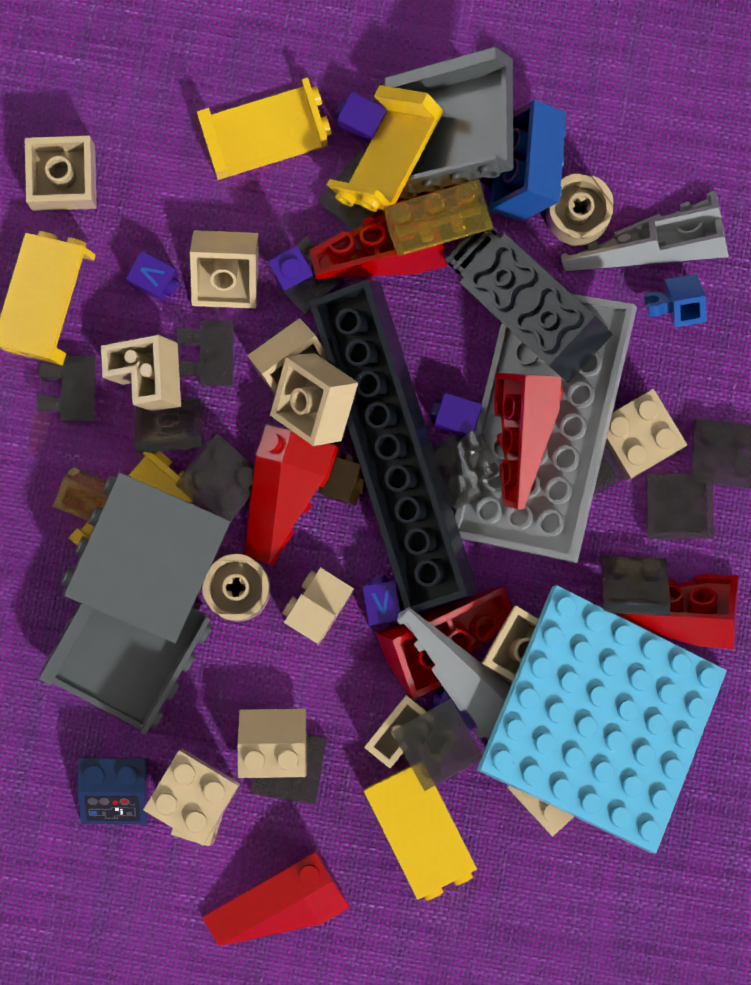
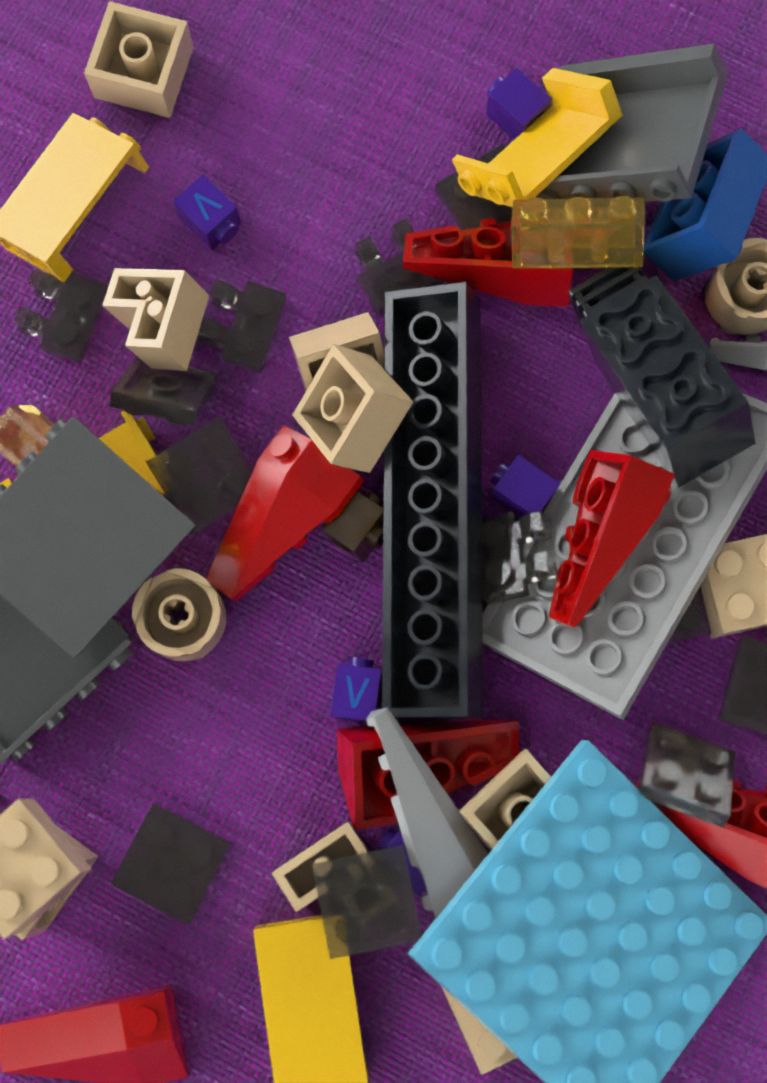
camera: 20 degrees right, 5 degrees down
(224, 269) = (296, 229): tan slope -> none
(265, 130) = (398, 89): yellow panel -> none
(272, 743) = (155, 829): tan slope -> none
(289, 268) = (373, 243): dark purple brick -> none
(318, 606) = (275, 672): tan brick -> none

